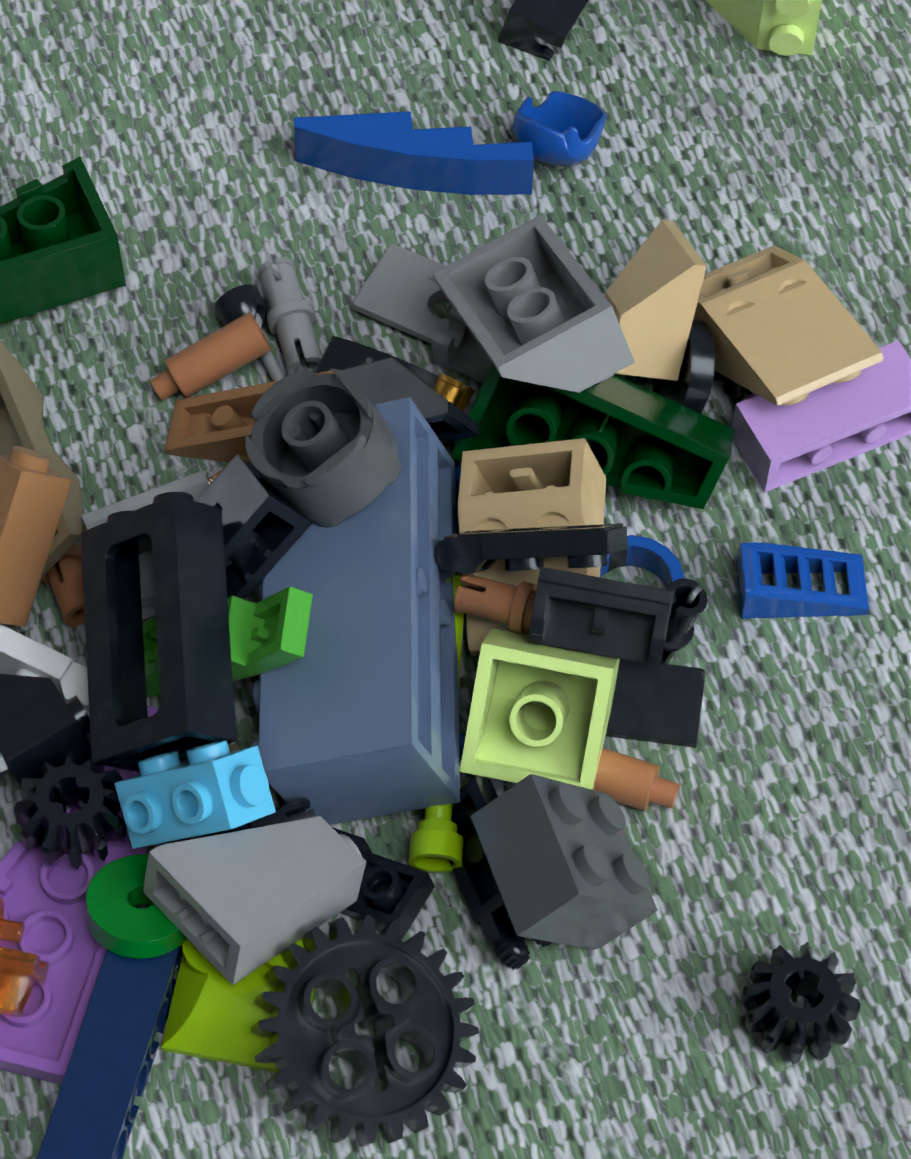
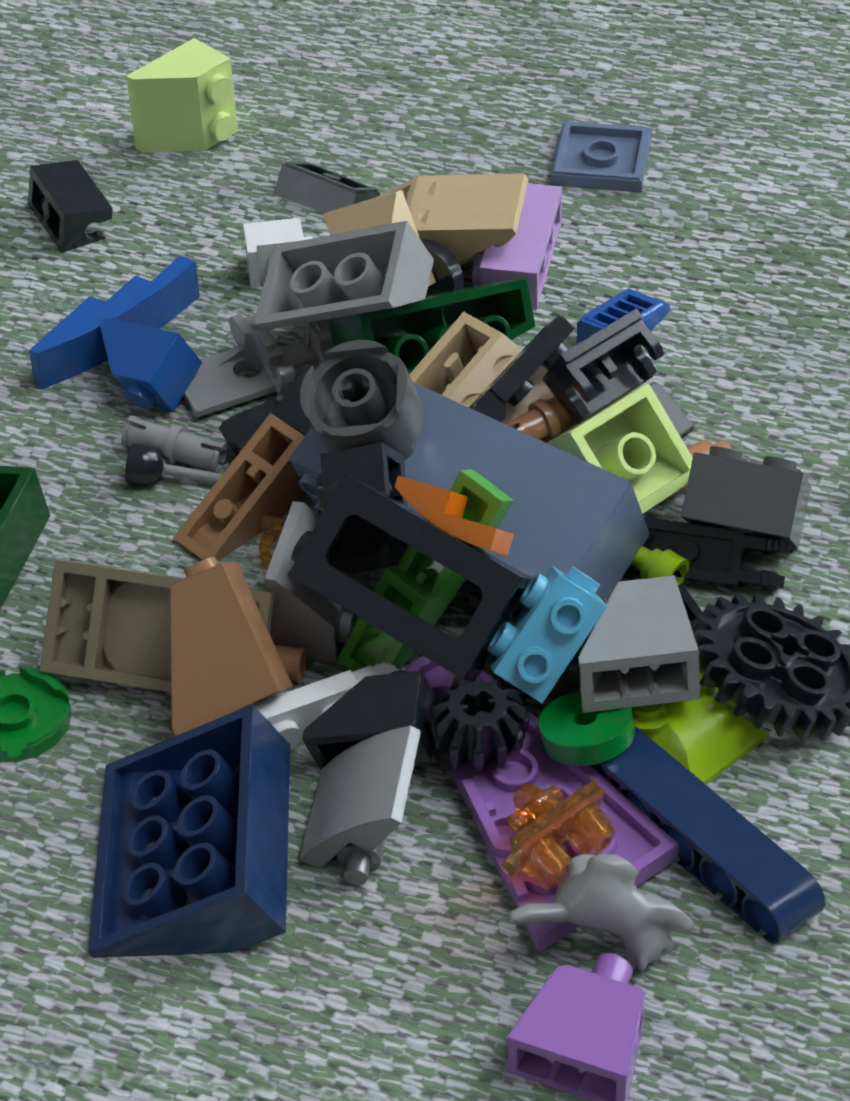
camera: 50 degrees left, 15 degrees down
(212, 358) = (168, 493): nougat cylinder -> none
(229, 607) = (446, 511): none -> orange slope
(365, 220) = (149, 363): none -> blue slope
(561, 128) = (183, 238): blue hair -> none
(626, 208) = (261, 239): none -> white brick
(782, 190) = (320, 187): none -> black slope

